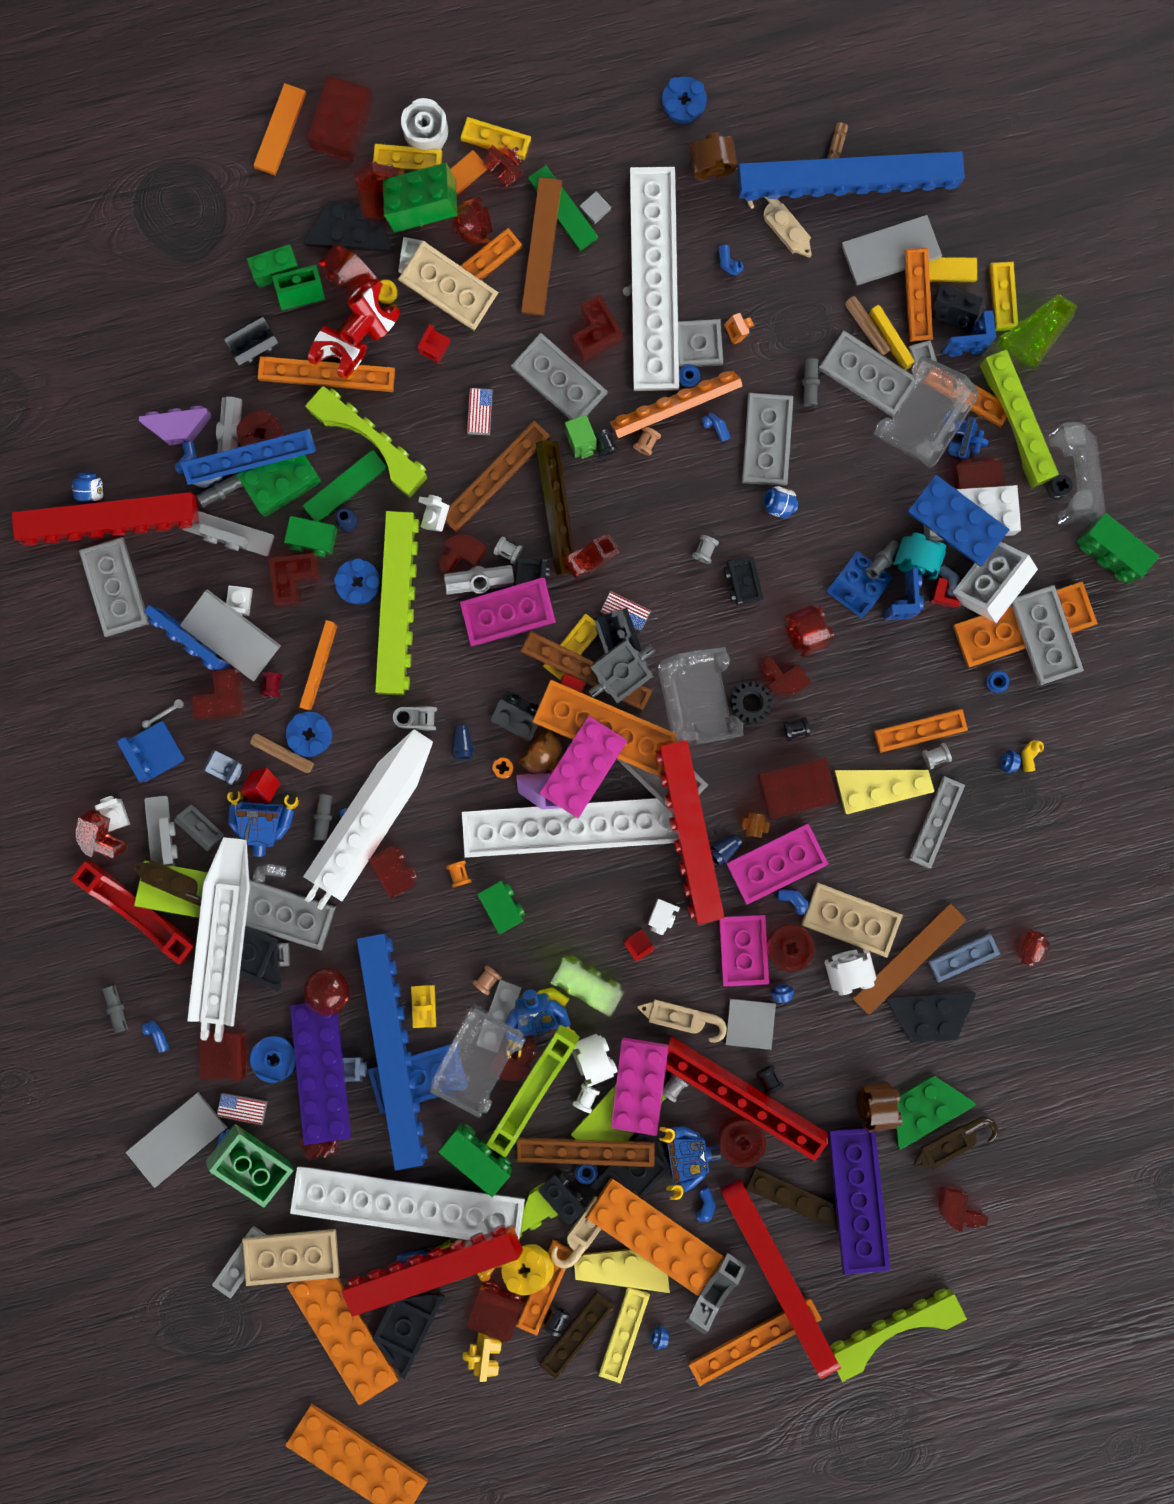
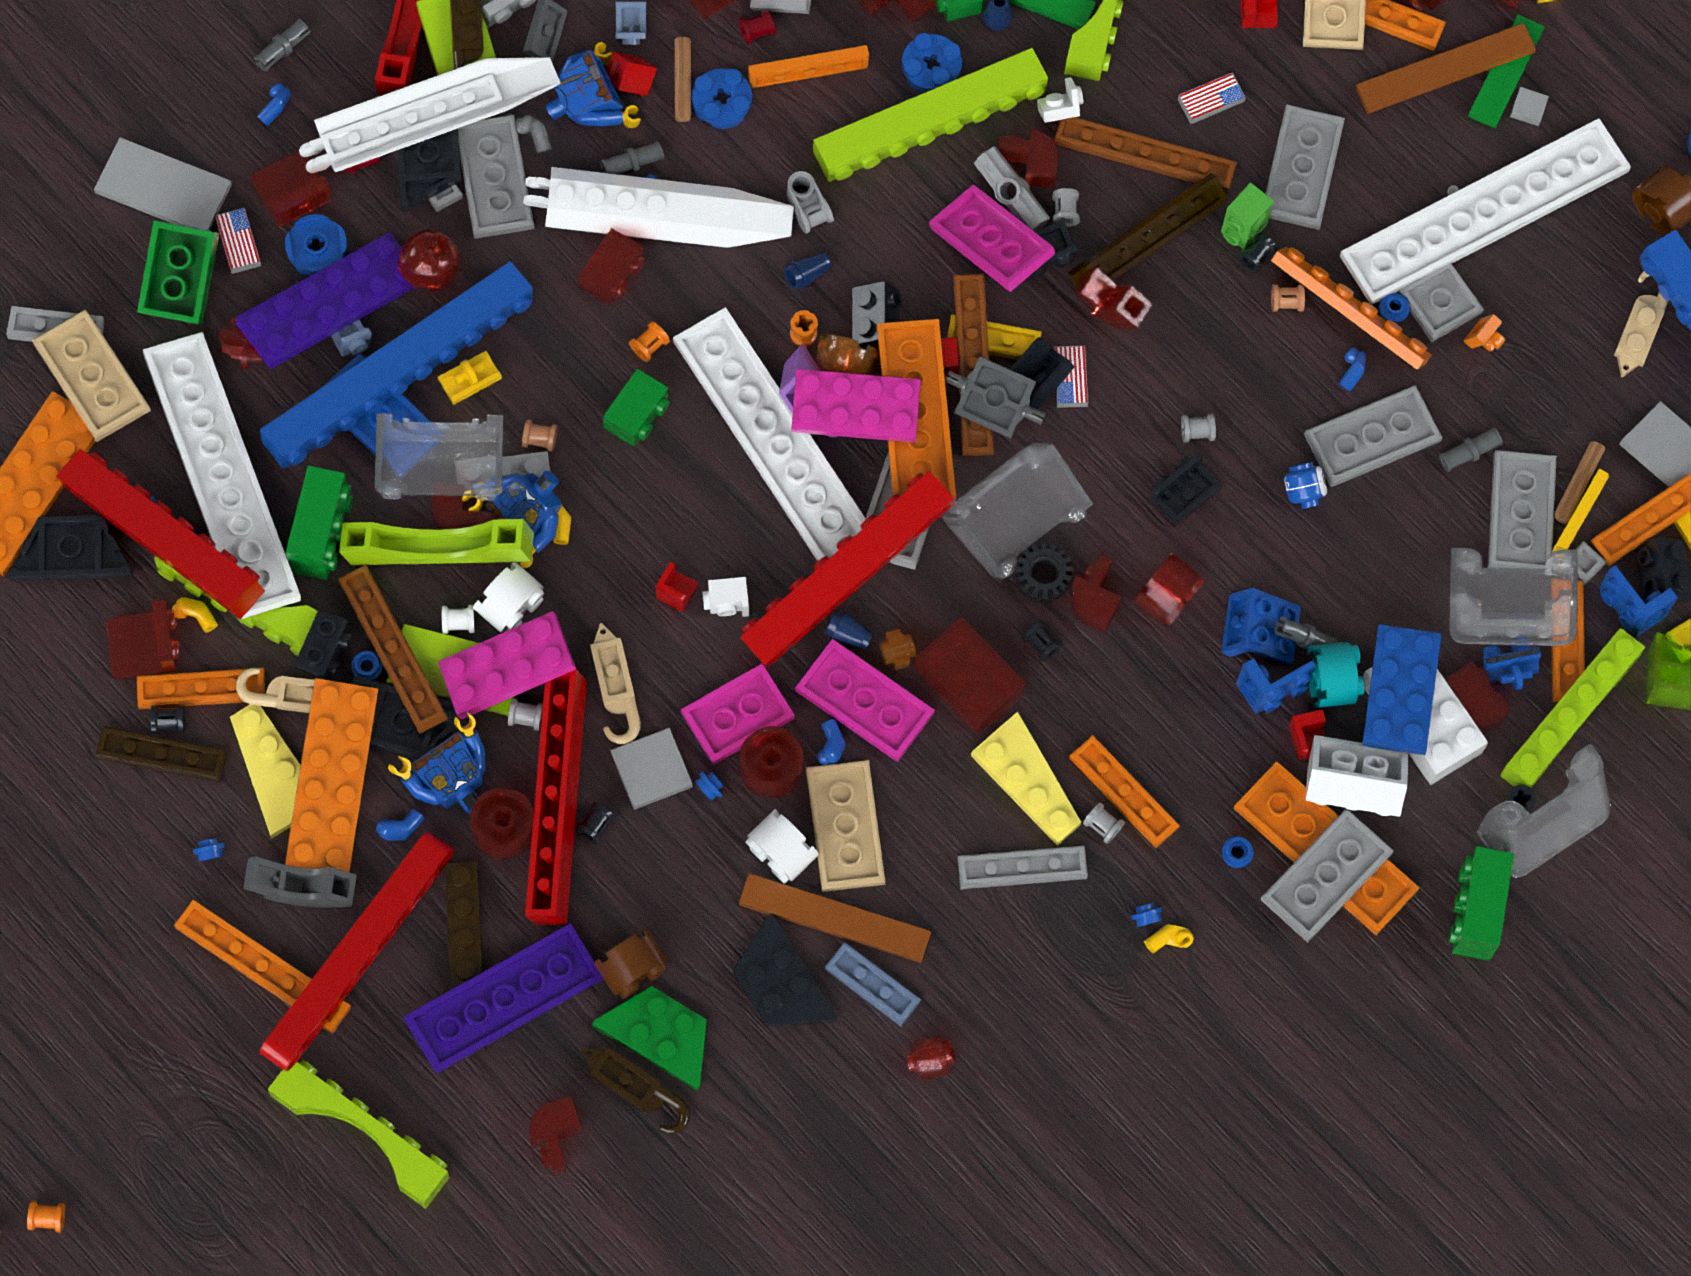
camera: 60 degrees right, 15 degrees down
(479, 1357) = (68, 662): yellow hips -> none
(540, 1273) = (215, 648): yellow brick -> none
(587, 985) = (596, 548): clear neon green wedge -> none
(601, 330) = (1379, 179): clear red brick -> none
(624, 1334) = (190, 809): light yellow tile -> none
(728, 264) = (1555, 285): blue arm -> none
(953, 579) = (1333, 727): sand blue arm -> none

